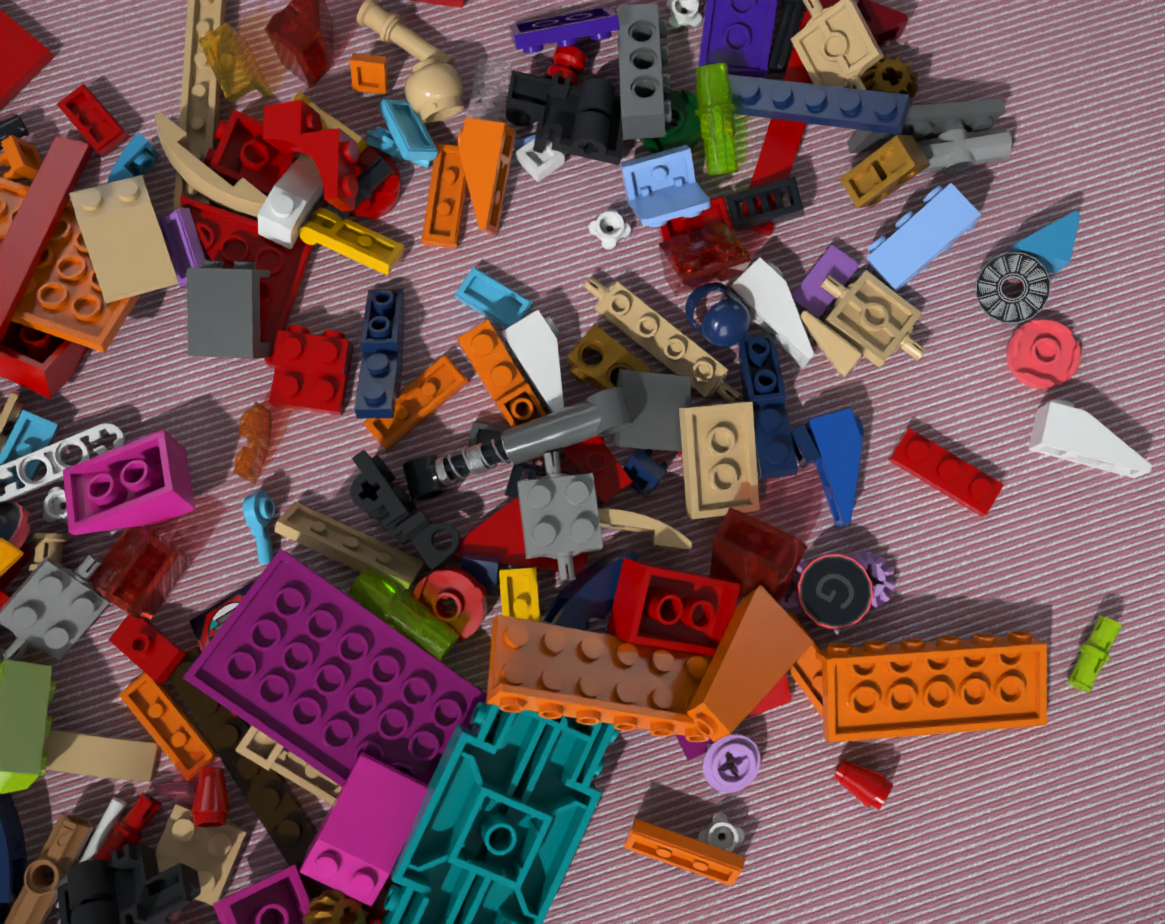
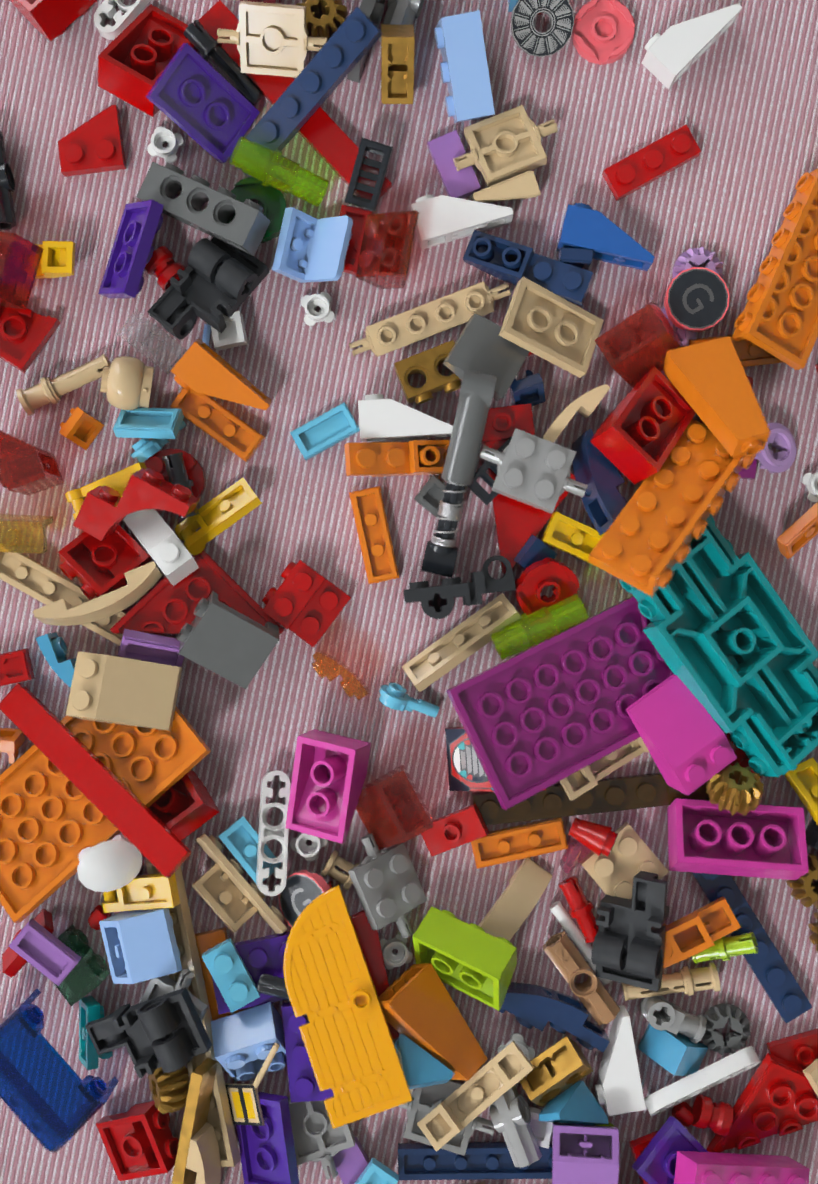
camera: 60 degrees left, 10 degrees up
(382, 354) = (324, 541): dark blue slope -> none
(725, 321) = (450, 261): dark blue helmet -> none

